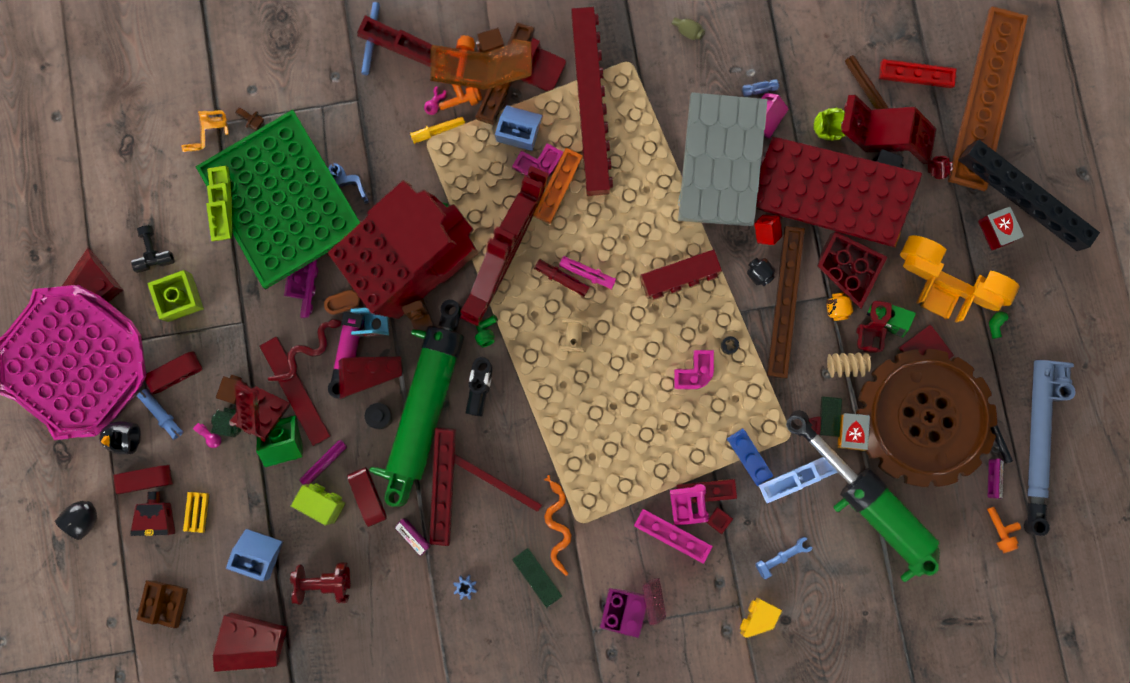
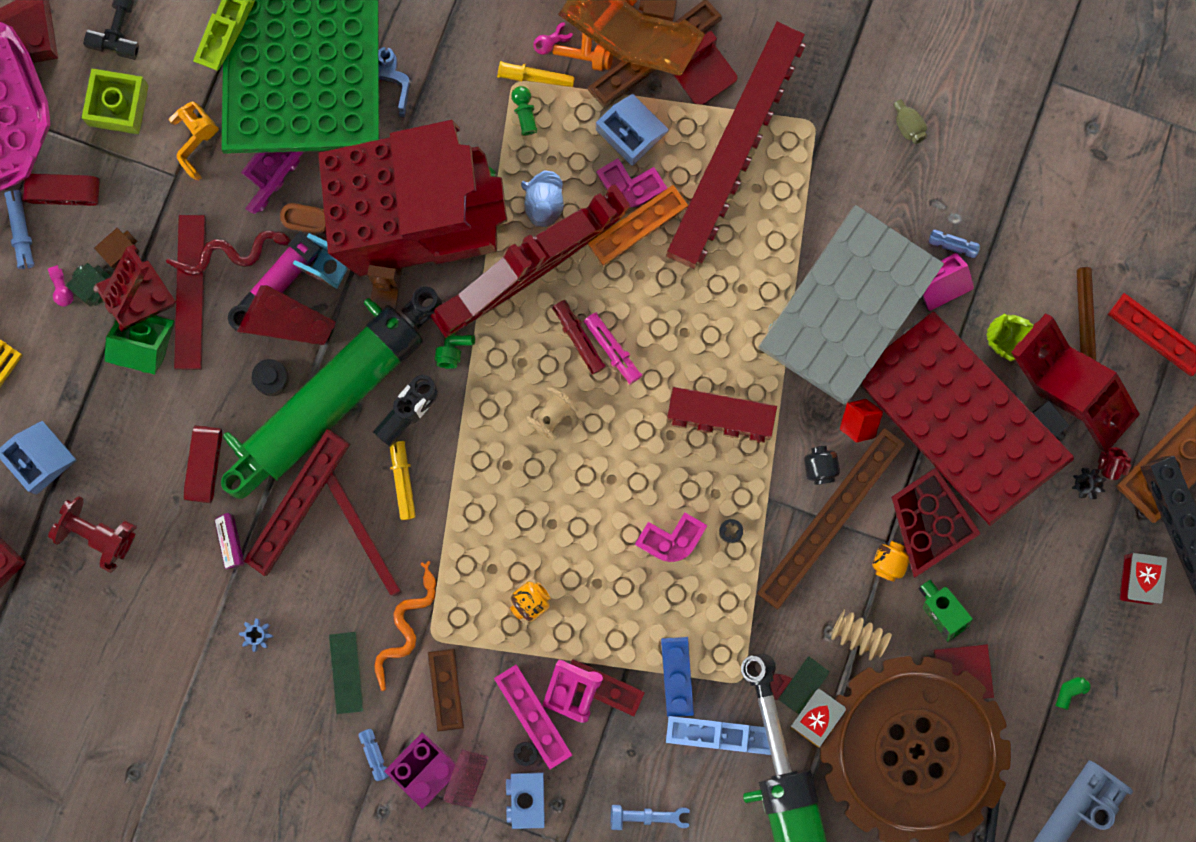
camera: 25 degrees right, 0 degrees up
(243, 282) = (201, 128): none -> light orange piece
(318, 504) = (142, 440): lime brick -> none
(323, 462) = (174, 395): magenta axle -> none
(437, 147) = (521, 97): none -> green pin
(488, 202) = (543, 198): none -> light blue hair
(503, 435) = (402, 480): none -> yellow axle
(585, 620) = (373, 754): none -> medium blue axle
(607, 551) = (445, 690): none -> reddish brown tile
(629, 463) = (530, 601): none -> light orange head
(687, 561) = (533, 757): none -> black bush
(709, 600) = (526, 817): none -> medium blue brick
(719, 520) = (599, 730): dark red tile -> none
(874, 329) = (915, 610): dark red piece -> none
(928, 192) = (1095, 481): none -> black gear
(943, 290) = (1081, 646): light orange piece -> none

